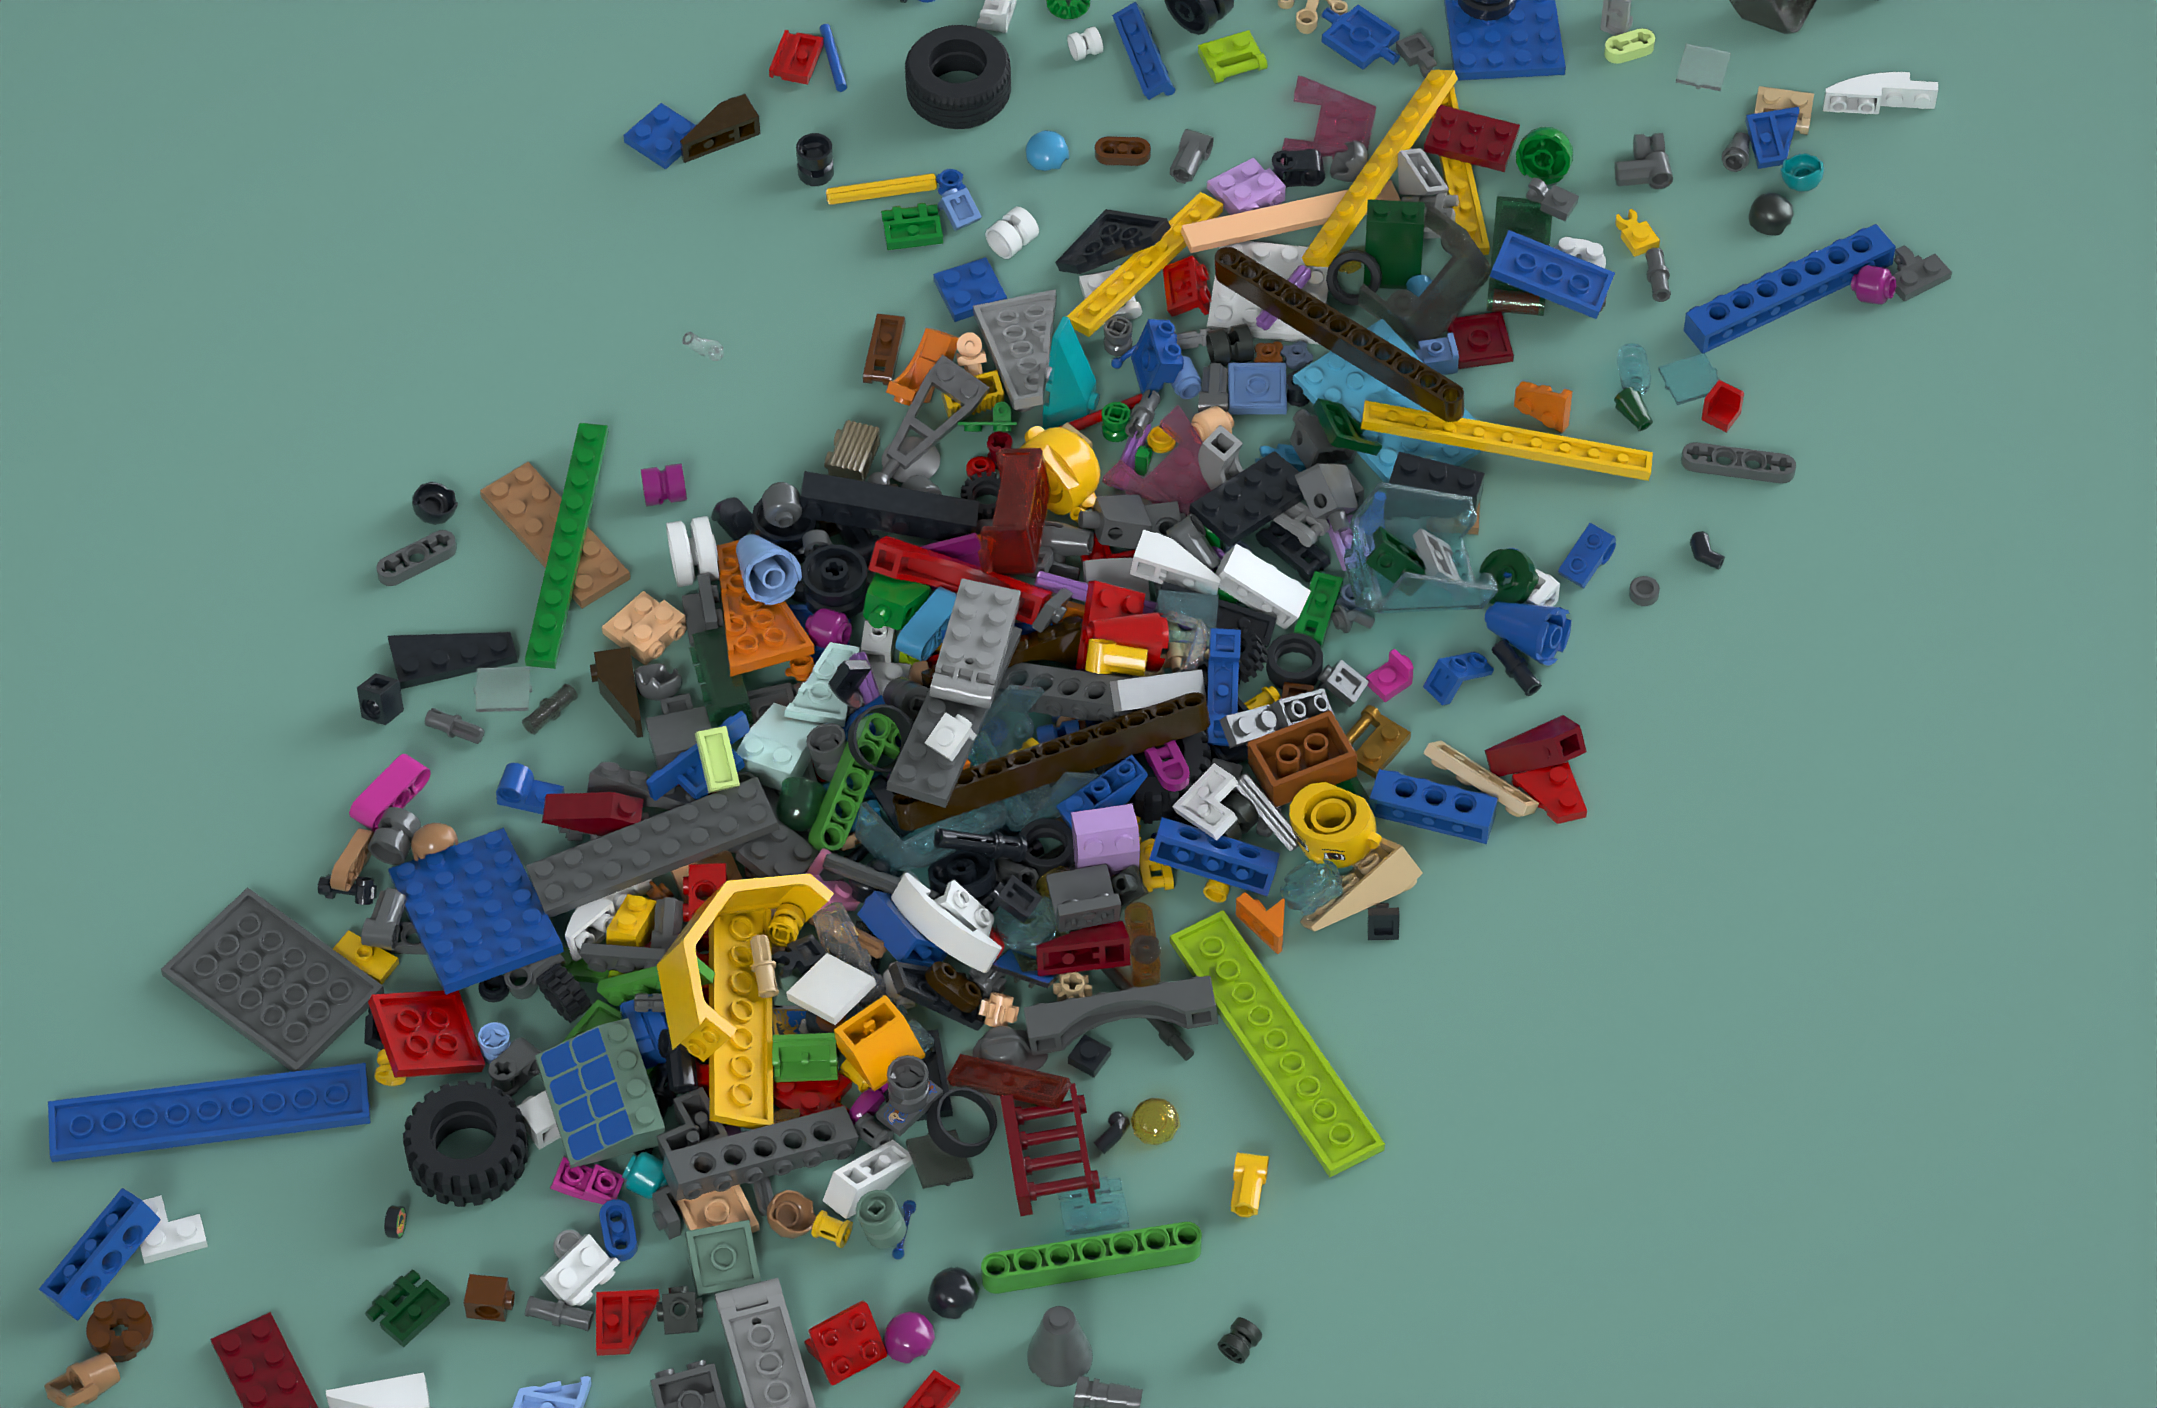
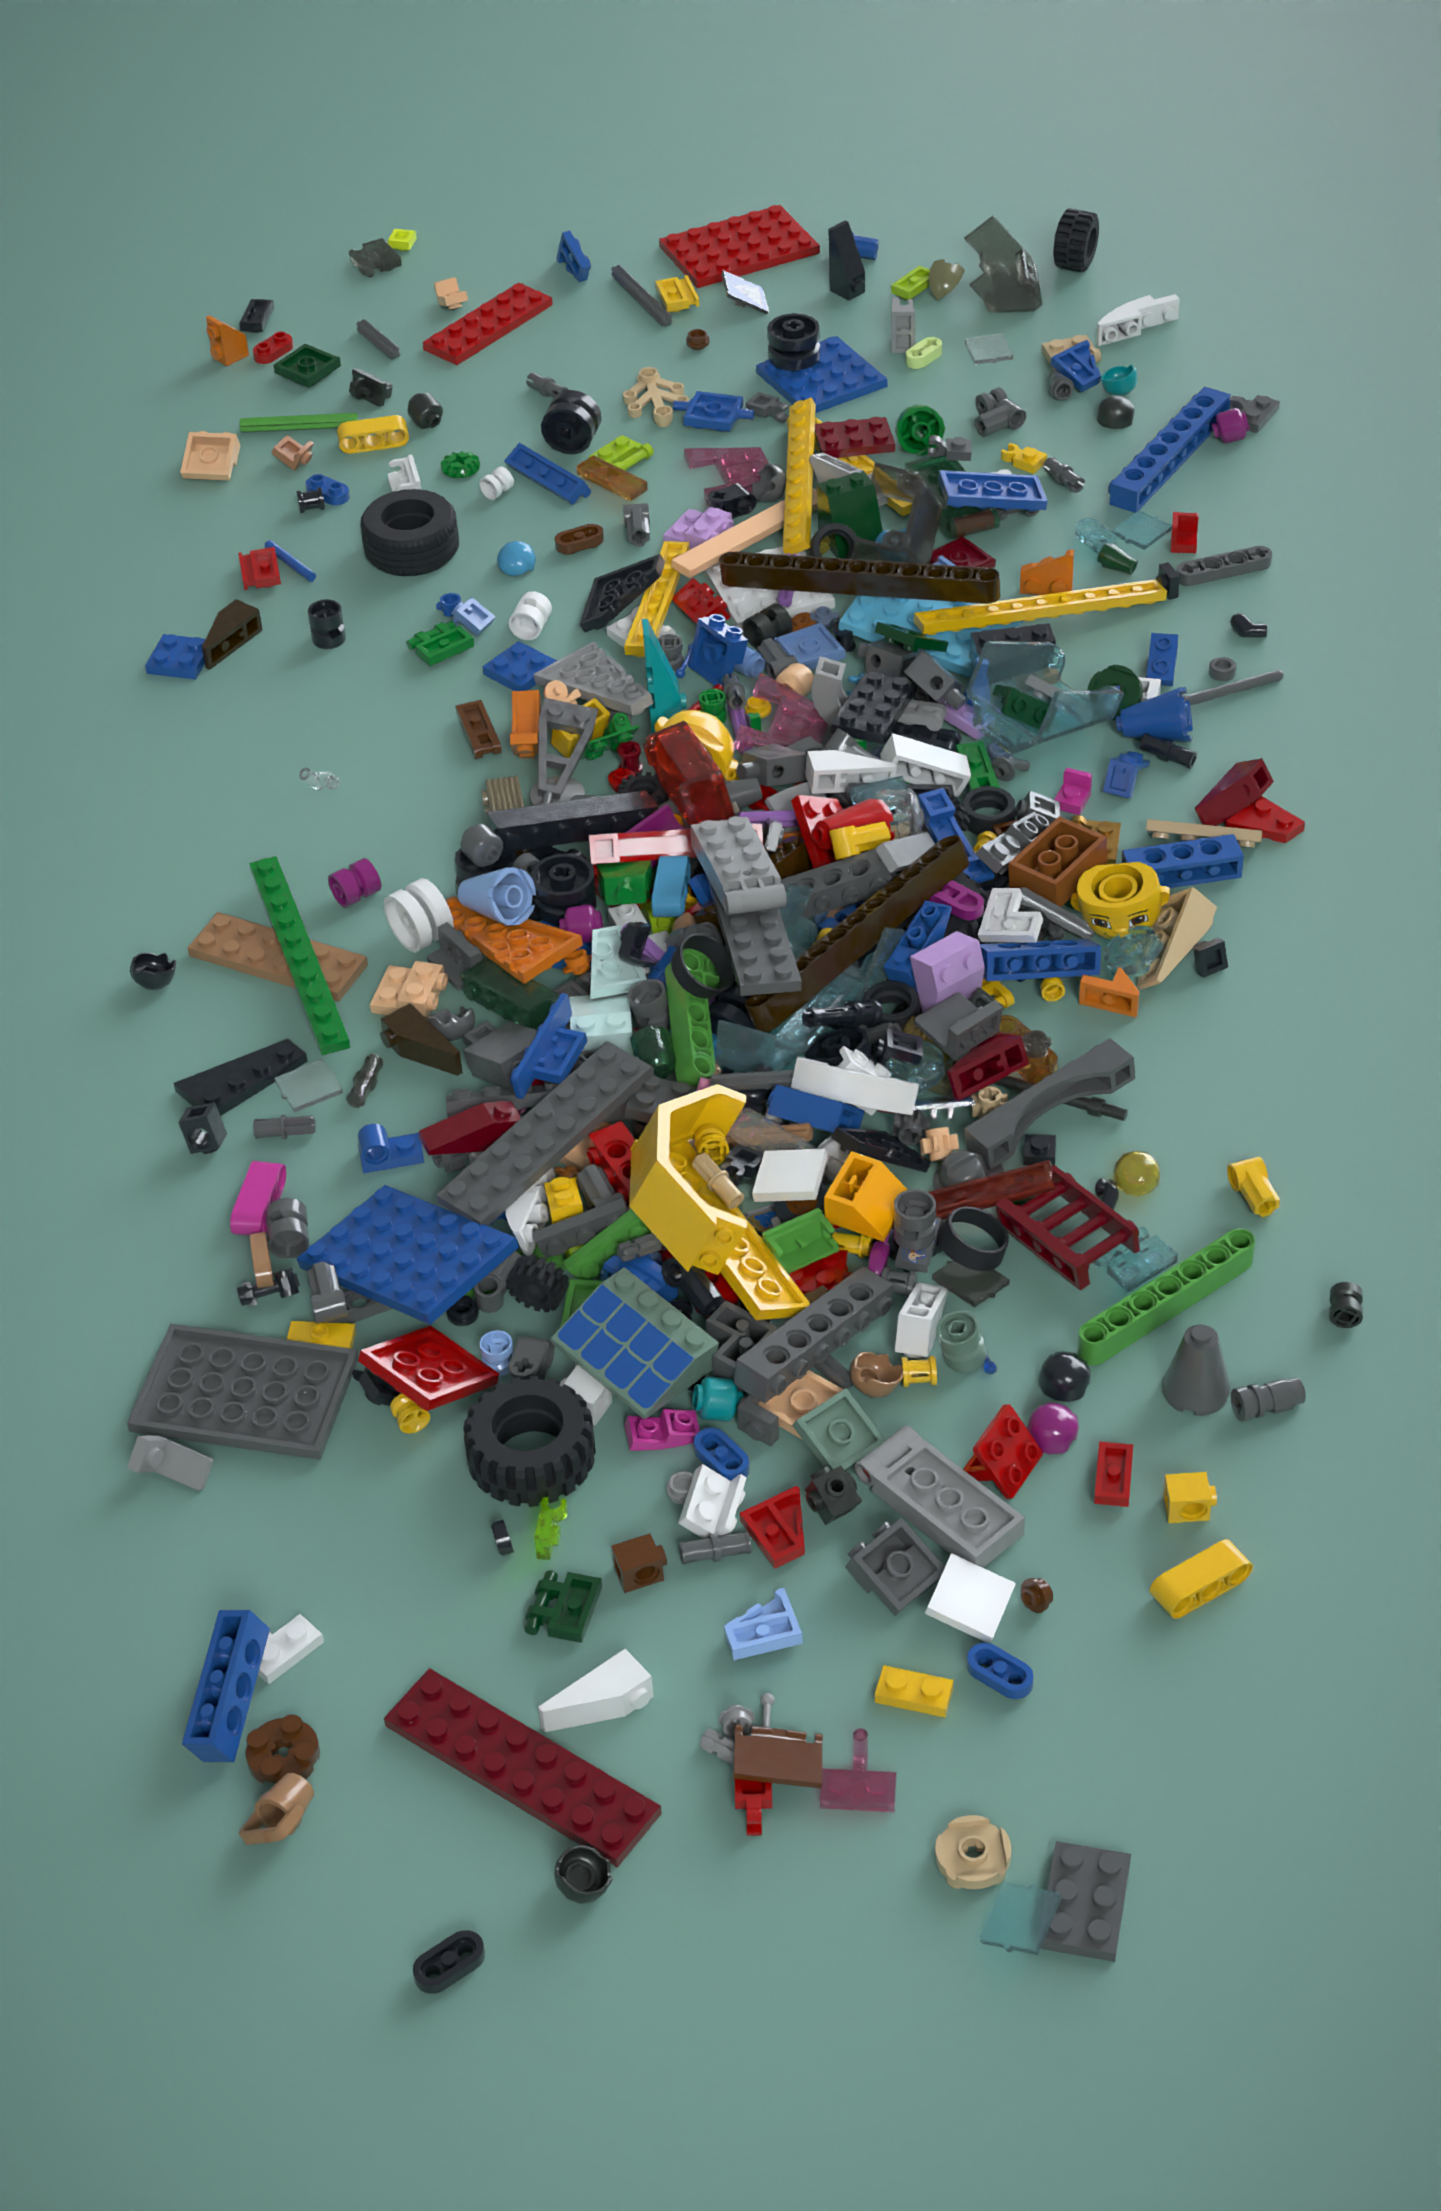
camera: 25 degrees left, 10 degrees down
(179, 1021) = (170, 1460): none -> light grey bracket
(208, 1112) = (249, 1525): blue plate -> none
(412, 569) = (148, 1032): dark grey beam -> none
(432, 839) = (327, 1214): medium nougat hair -> none
(433, 1232) = (547, 1532): none -> clear neon green plate
(717, 759) = (564, 1038): yellowish green tile -> none
(733, 517) = (440, 880): black plate -> none
(881, 189) = (394, 628): yellow axle -> none
(950, 735) = (772, 930): white bracket -> none
(953, 986) = (883, 1133): dark brown plate -> none
(1203, 84) = (612, 478): none -> clear orange plate
(1278, 1044) = (1201, 1078): lime plate -> none
(1629, 618) = (1234, 687): none -> dark grey piece
(1662, 459) = (1169, 580): none -> black plate

